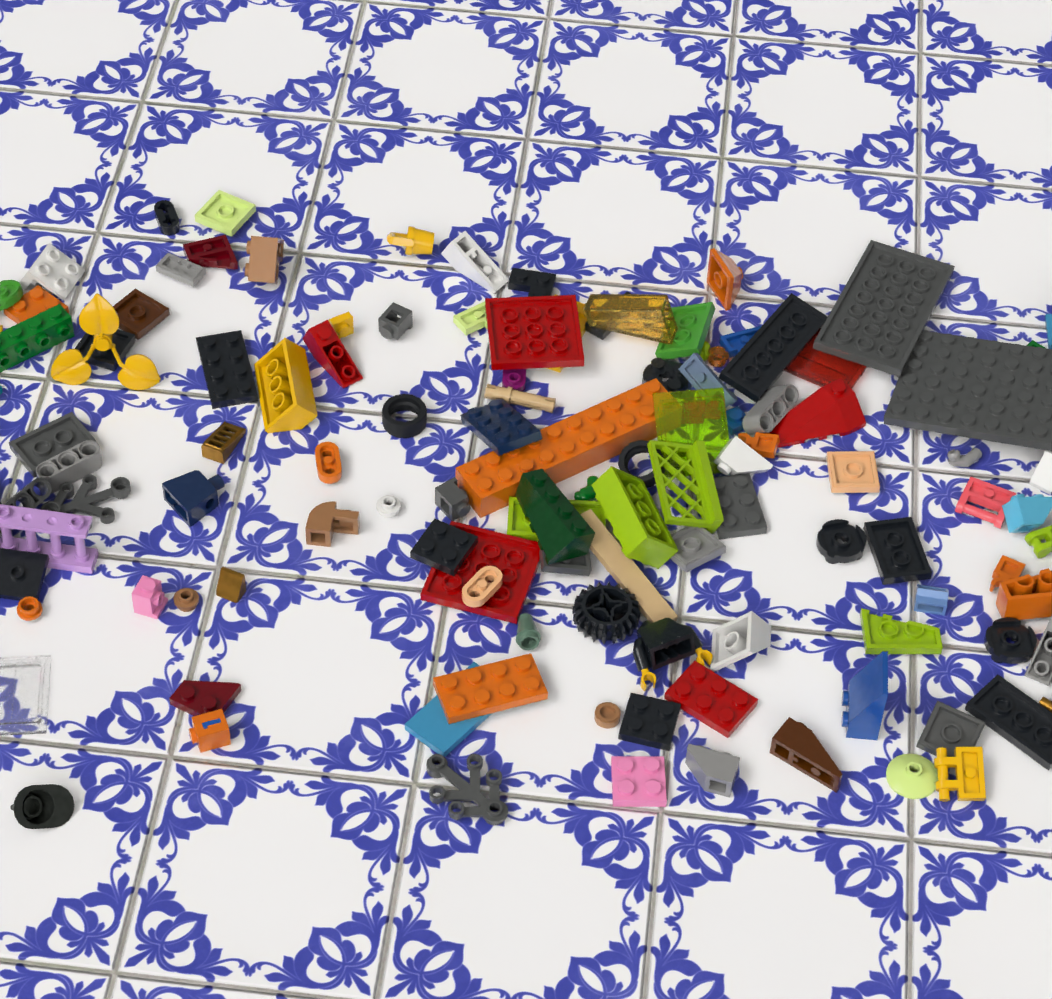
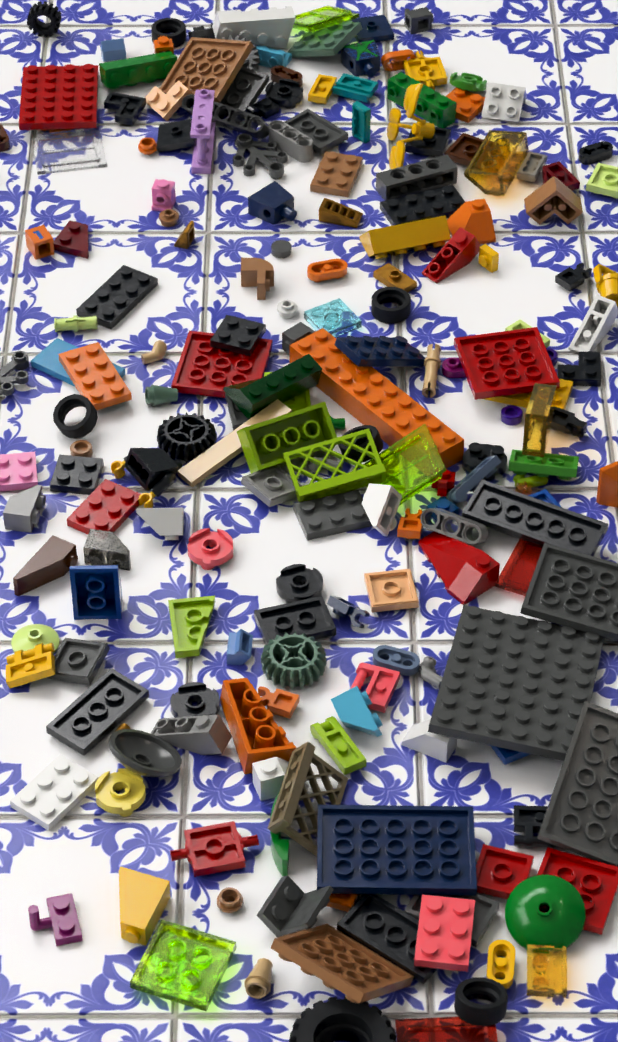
camera: 85 degrees right, 5 degrees down
(65, 392) = (361, 121): none -> teal plate
(140, 436) = (336, 174): none -> medium nougat plate
(176, 287) = (497, 161): none -> clear yellow slope
(177, 365) = (416, 177): none -> dark grey brick
(272, 326) = (475, 218): none -> orange slope
(274, 500) = (281, 249): none -> dark grey tile
(330, 662) = (117, 296): none -> black plate
(353, 409) = (394, 277): none -> pearl gold plate
(380, 704) = (75, 323): none -> yellowish green pin
(386, 269) = (573, 278): none -> black plate
(392, 326) = (502, 287): dark grey brick -> none
(413, 470) = (333, 317): none -> clear light blue plate
(450, 632) = (157, 353): none -> tan arm
(478, 590) = (195, 357): light nougat plate -> none
(577, 696) = (66, 405): none -> black tyre
(595, 349) = (511, 415): none -> dark purple tile
(782, 620) = (212, 557): none -> coral plate
(784, 697) = (106, 549): none -> clear smoke slope
(878, 508) = (343, 608): none -> plate
(950, 479) = (396, 659): none -> sand blue plate
(953, 555) = (294, 665): none -> sand green gear

